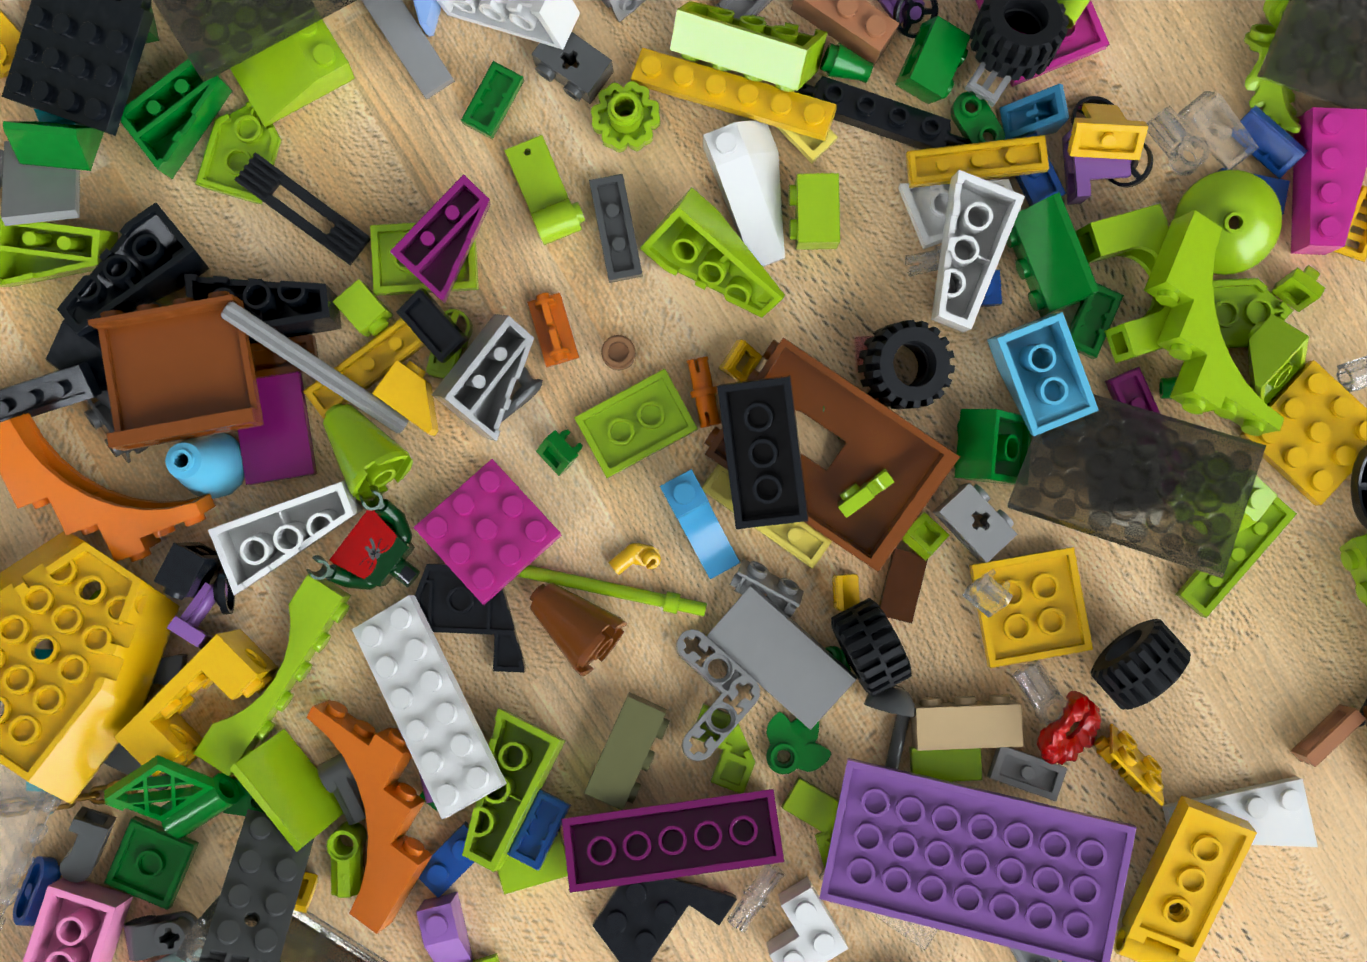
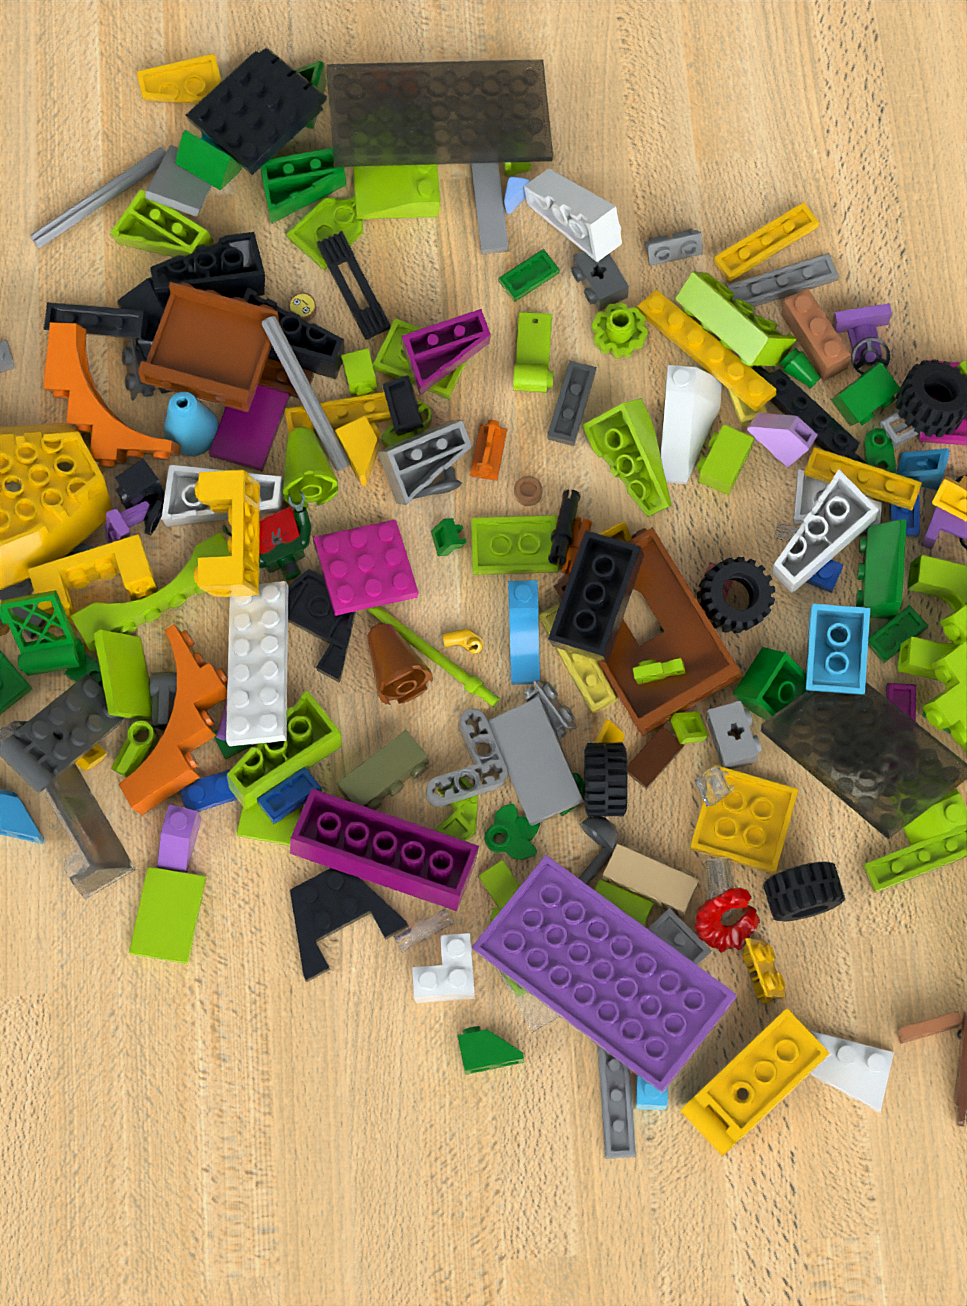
camera: 30 degrees right, 15 degrees down
(259, 261) = (303, 305): none -> tile
(342, 590) = (239, 496): none -> yellow plate
(685, 392) = (562, 535): none -> black pin
(868, 154) = (782, 435): none -> lavender slope

